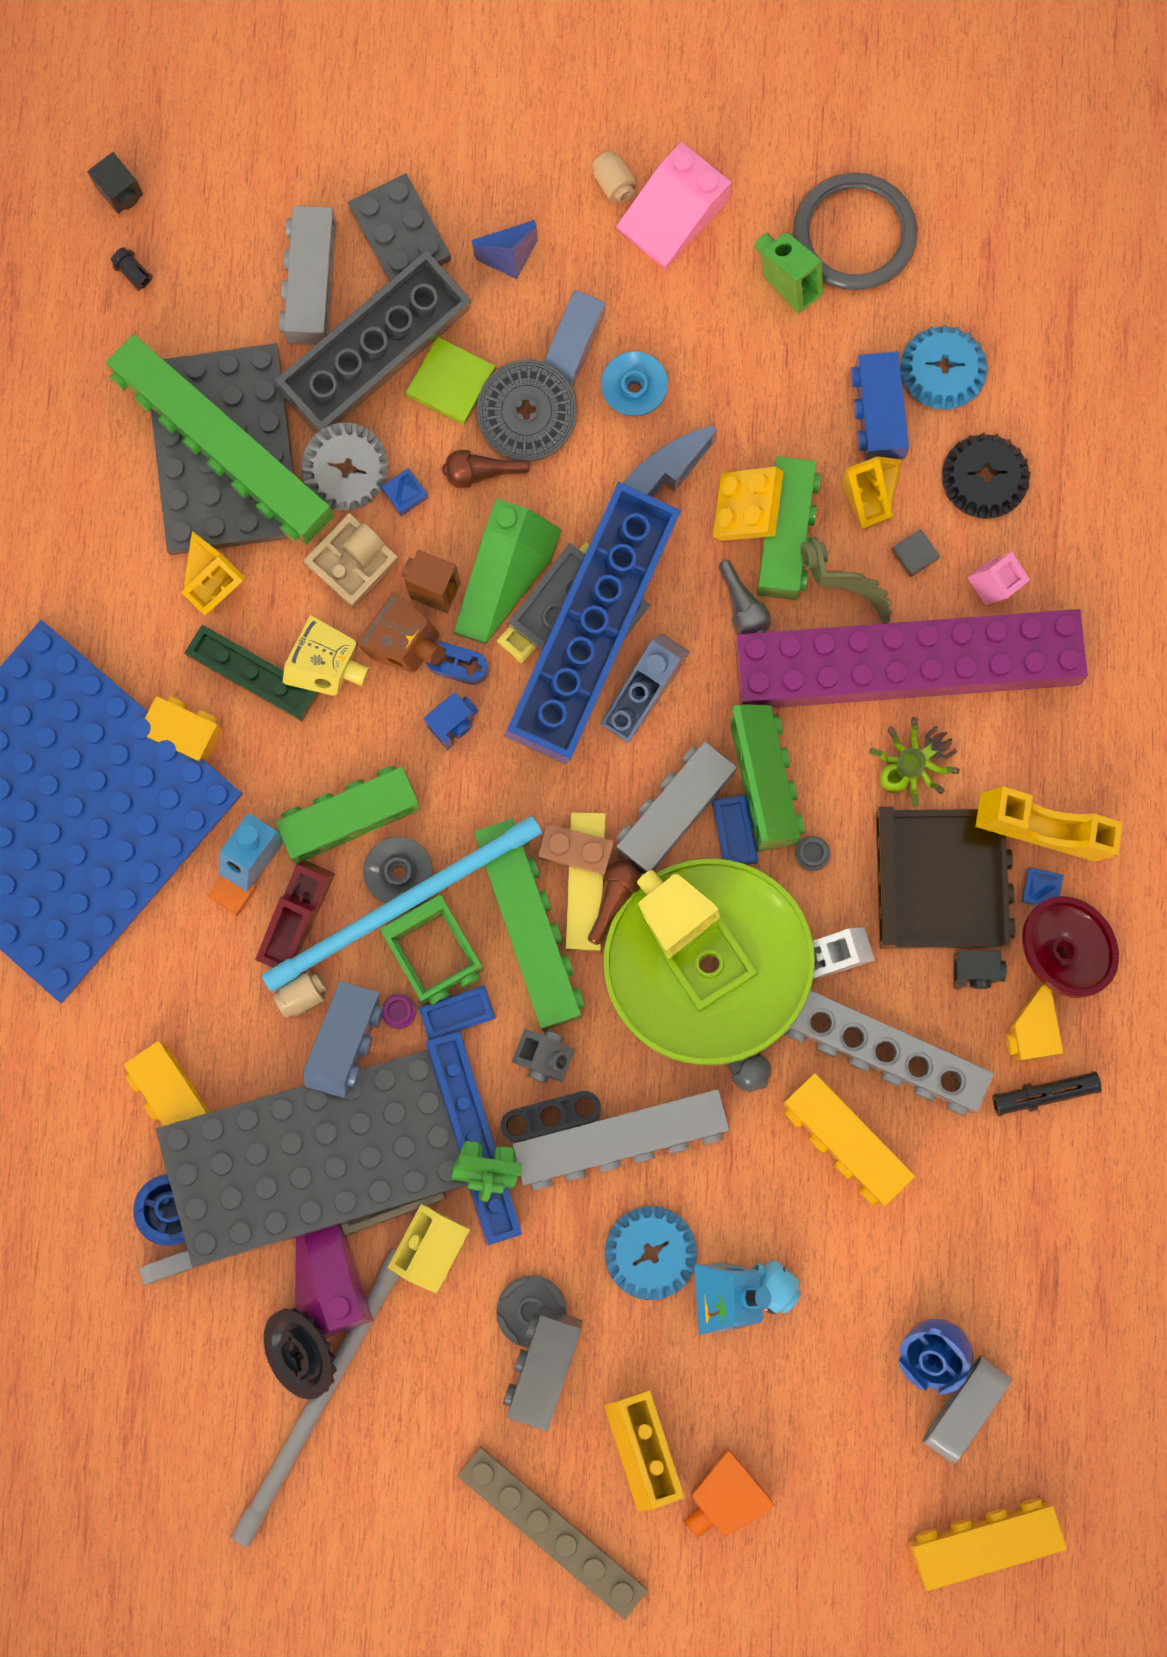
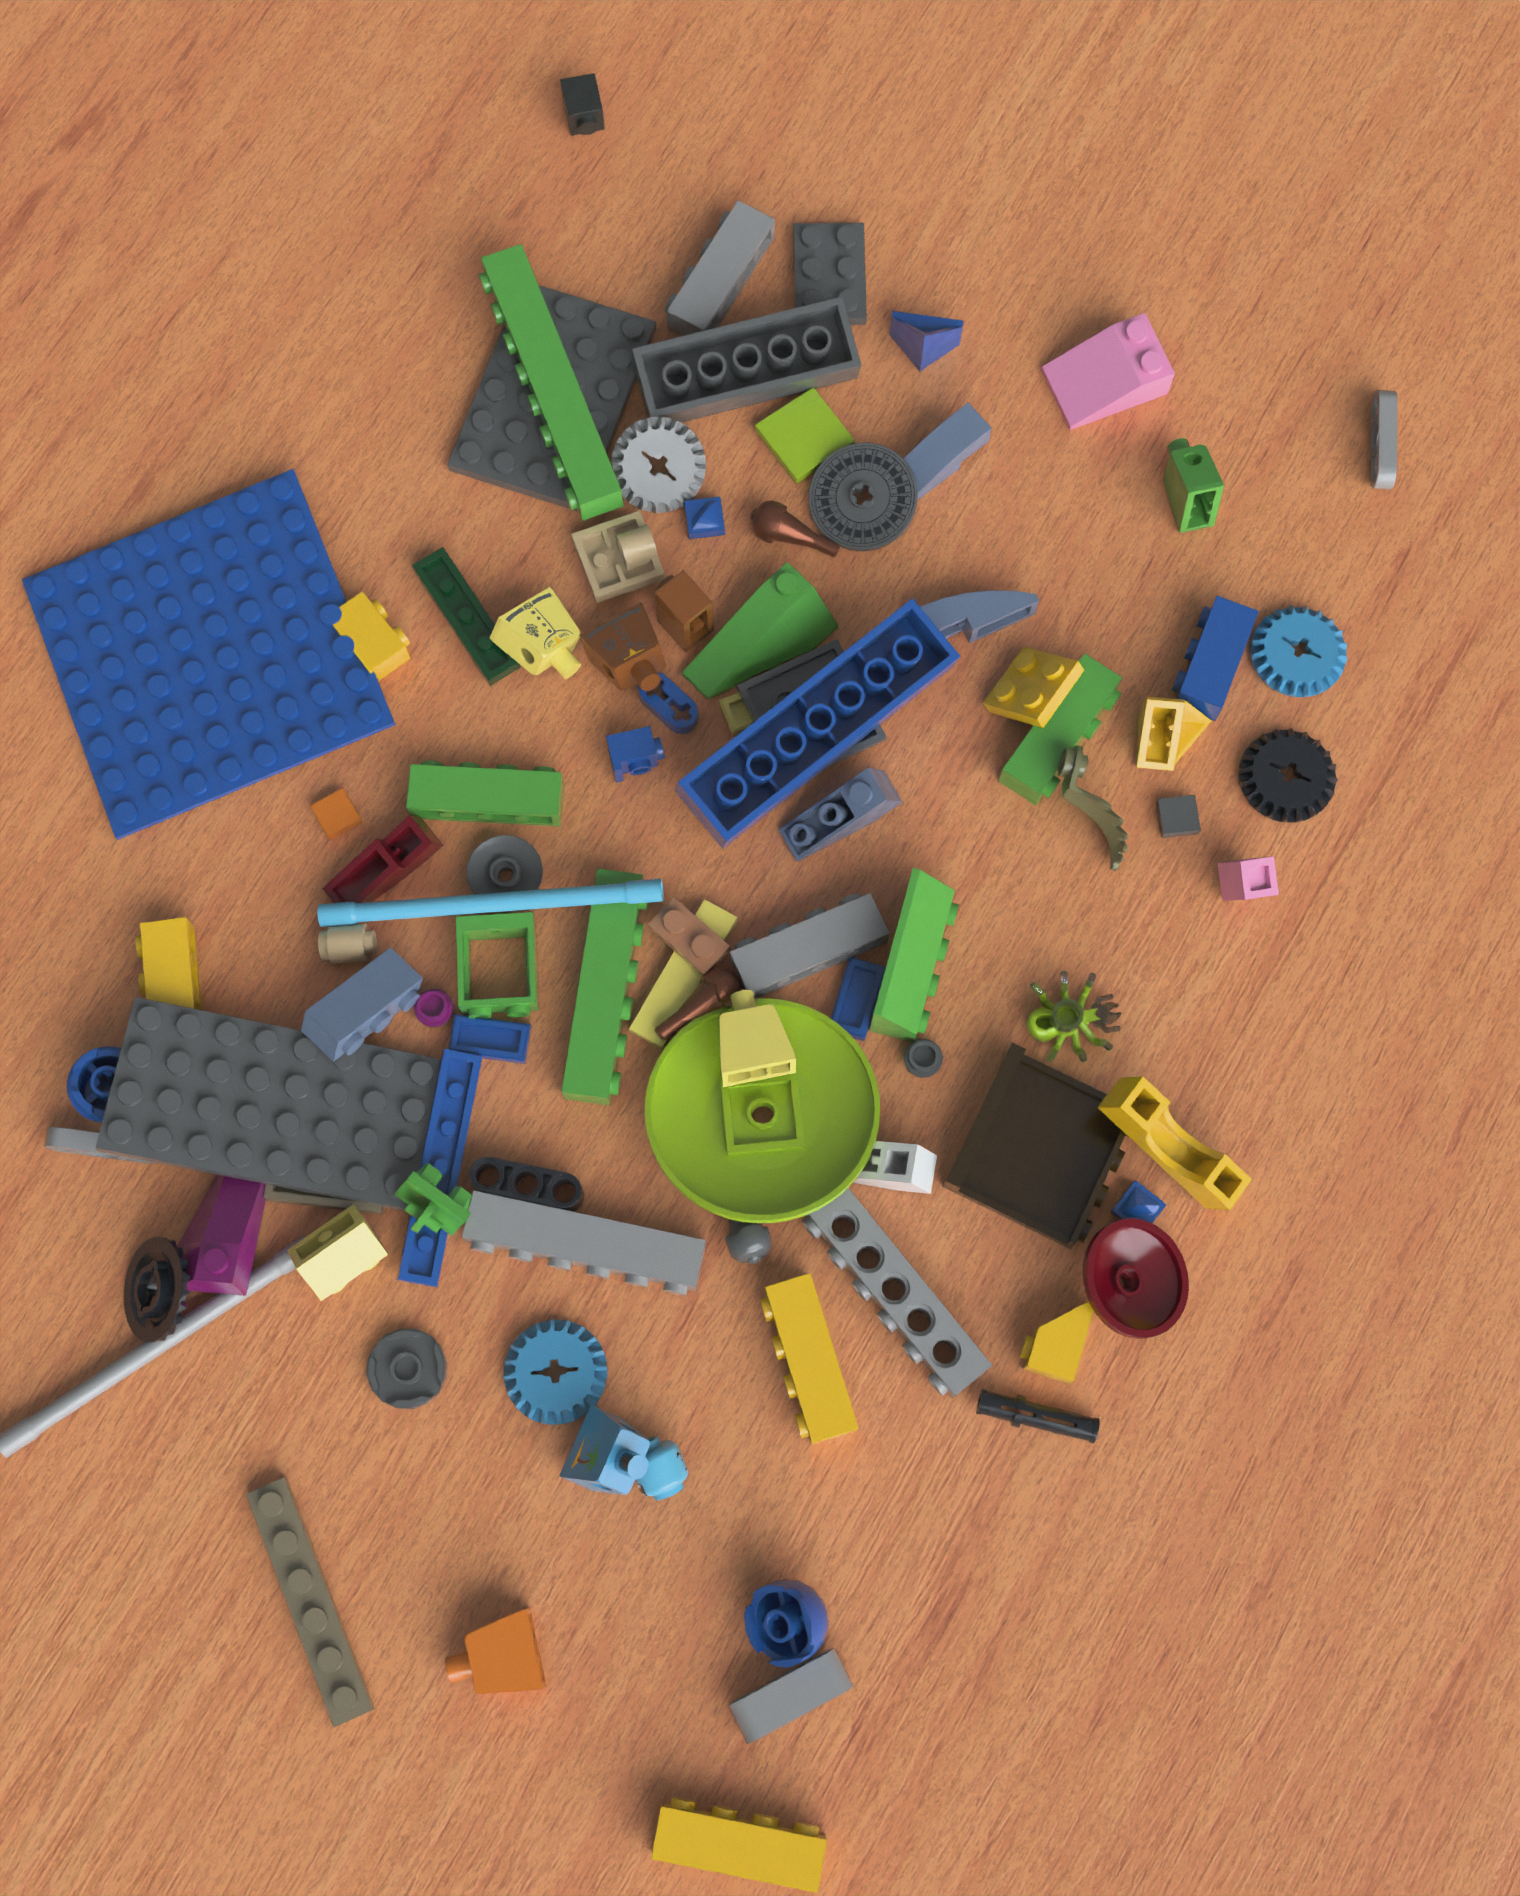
camera: 20 degrees right, 5 degrees down
(124, 261) = (552, 180): black pin -> none
(208, 575) = (473, 505): yellow slope -> none
(250, 849) = (372, 777): dark azure torso -> none
(542, 1368) = (385, 1428): brick -> none
(550, 1058) = (550, 1120): flat silver brick -> none
(614, 177) = (1063, 319): tan brick -> none
(634, 369) = (986, 507): dark azure dish -> none
(644, 1451) = (442, 1564): yellow brick -> none
(748, 613) = (980, 797): flat silver piece -> none
(884, 189) = (1305, 435): dark grey wedge -> none
(911, 659) = (1121, 916): magenta brick -> none
(925, 154) = (1383, 439): none -> light grey beam
(978, 968) = (1031, 1255): pearl dark grey brick -> none

